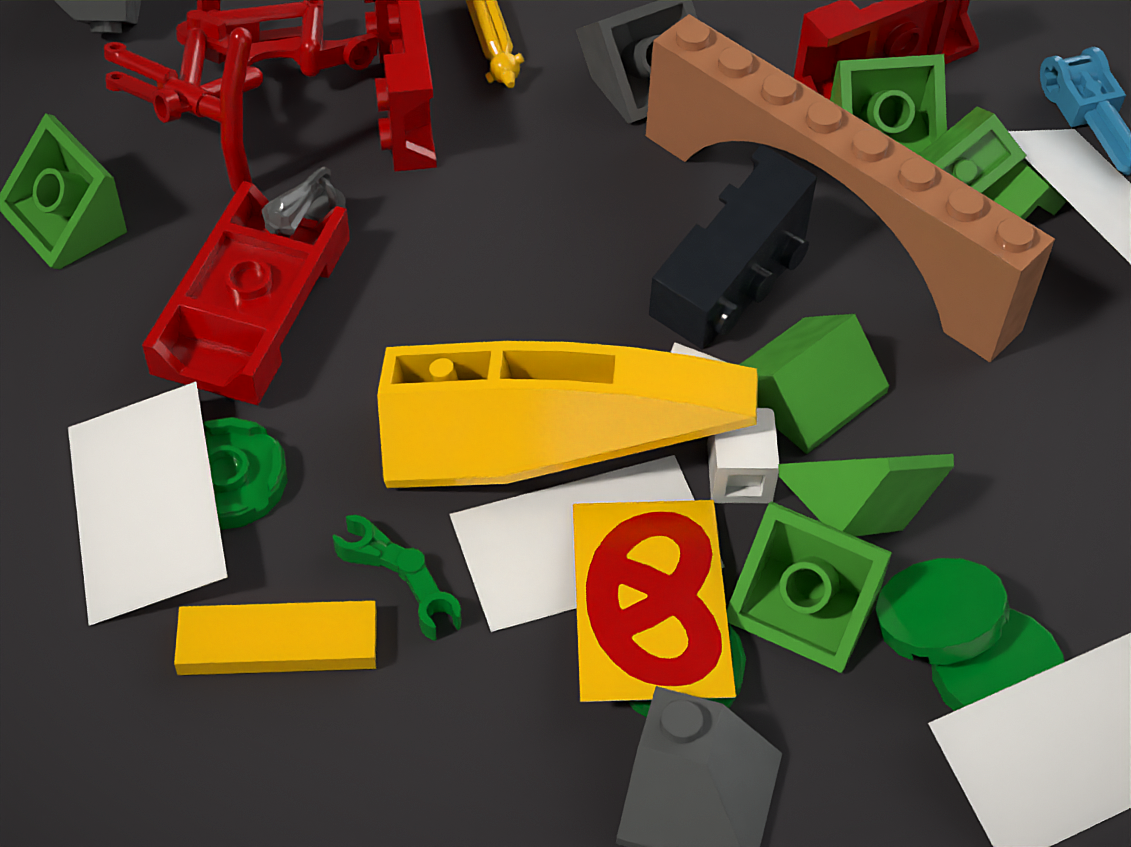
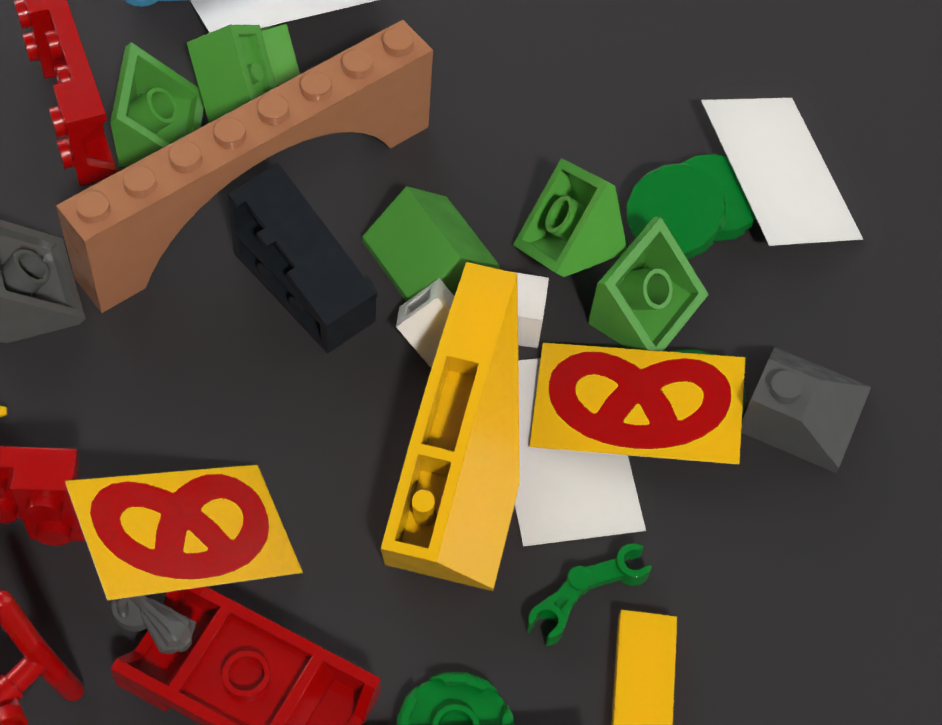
camera: 85 degrees left, 5 degrees up
(390, 206) = (181, 530): none -> sticker

